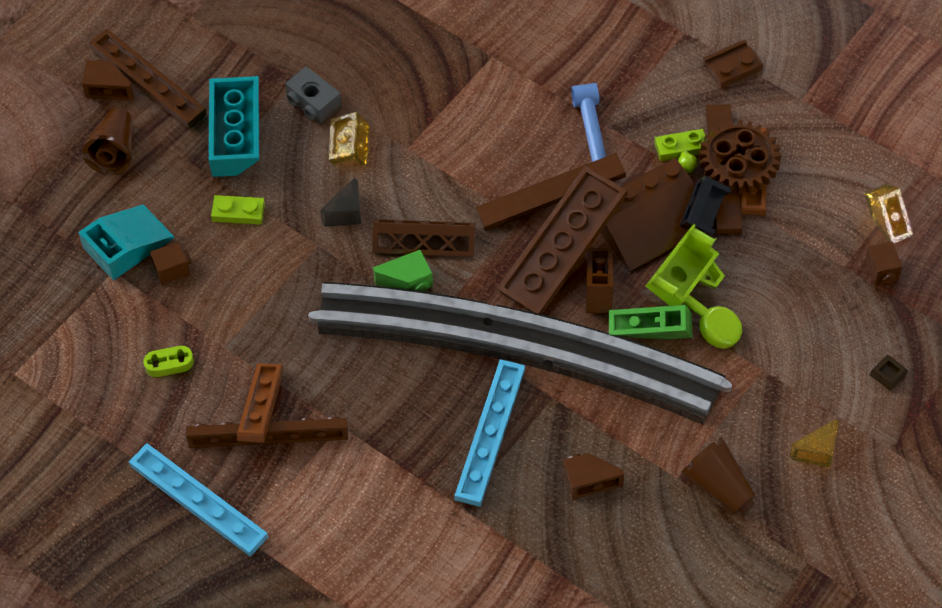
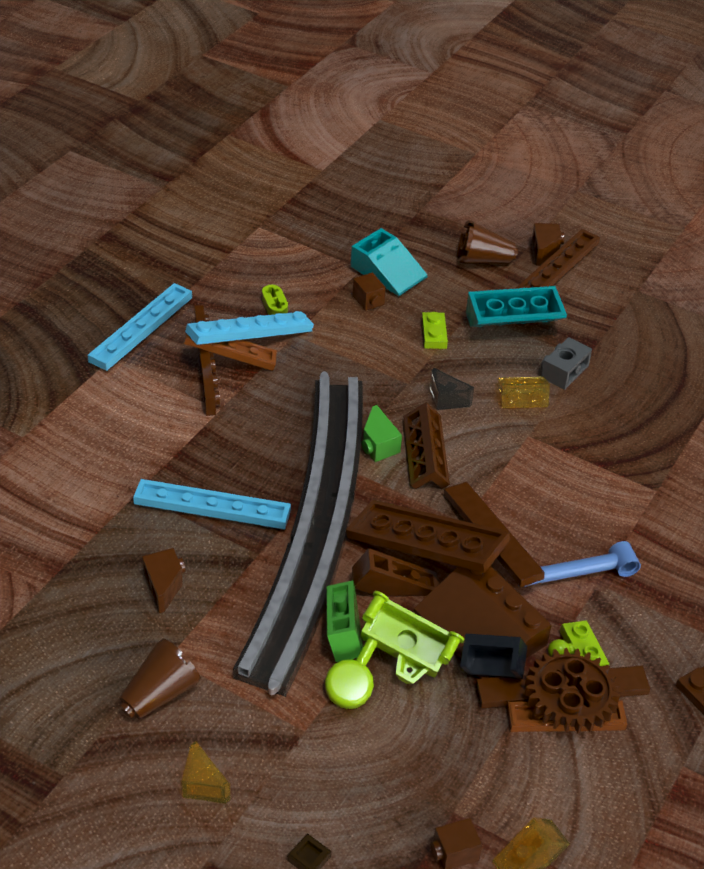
camera: 80 degrees right, 15 degrees down
(236, 379) = (248, 327): none -> medium azure plate

